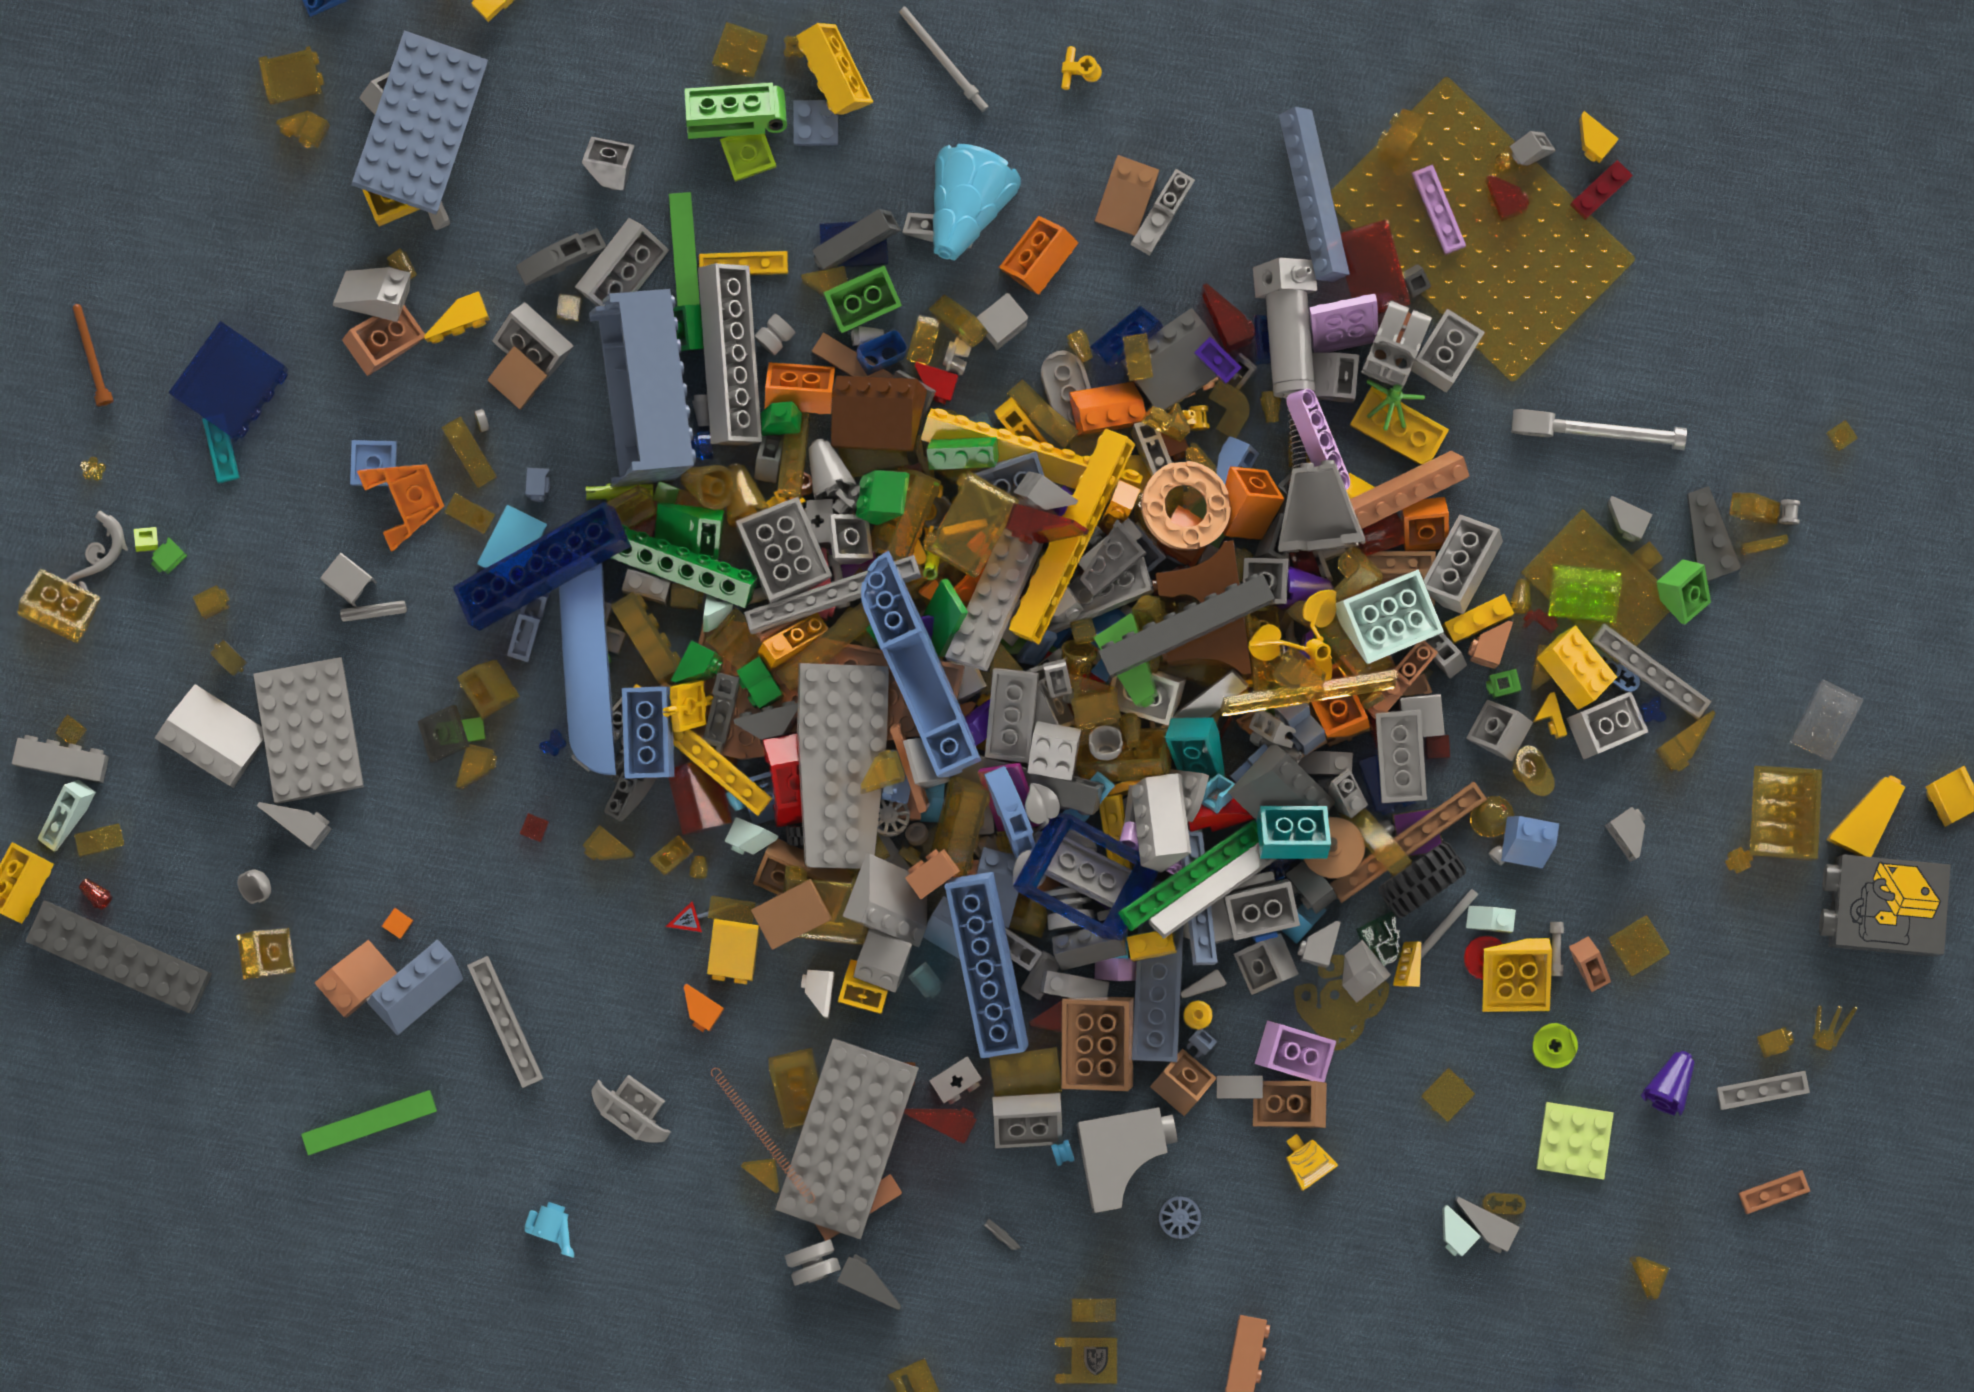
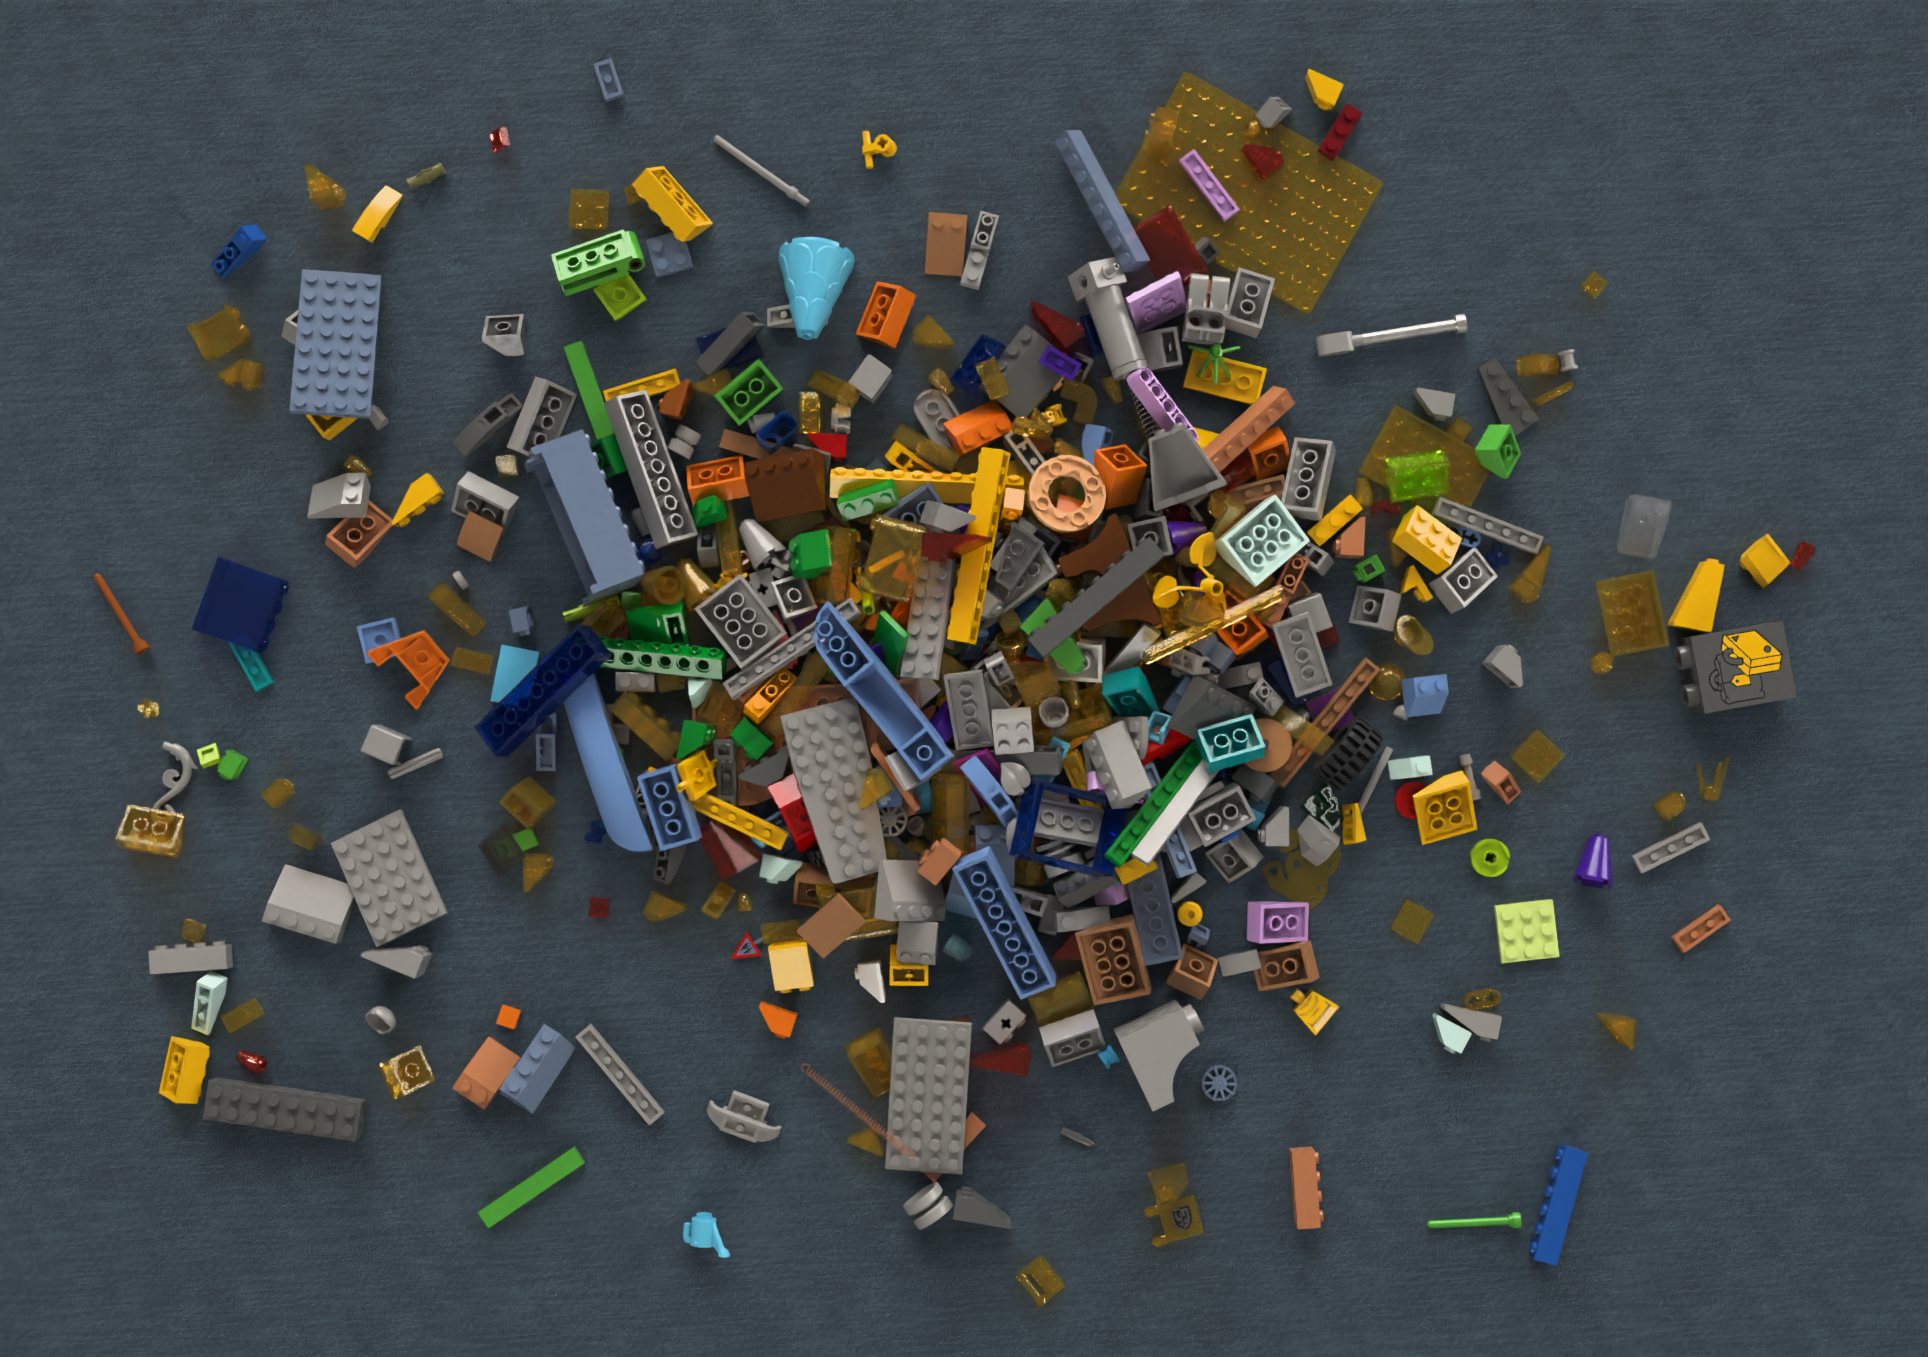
camera: 10 degrees left, 5 degrees up
(778, 287) = (677, 401): none -> dark orange slope
(1083, 291) = (931, 335): none -> clear yellow slope

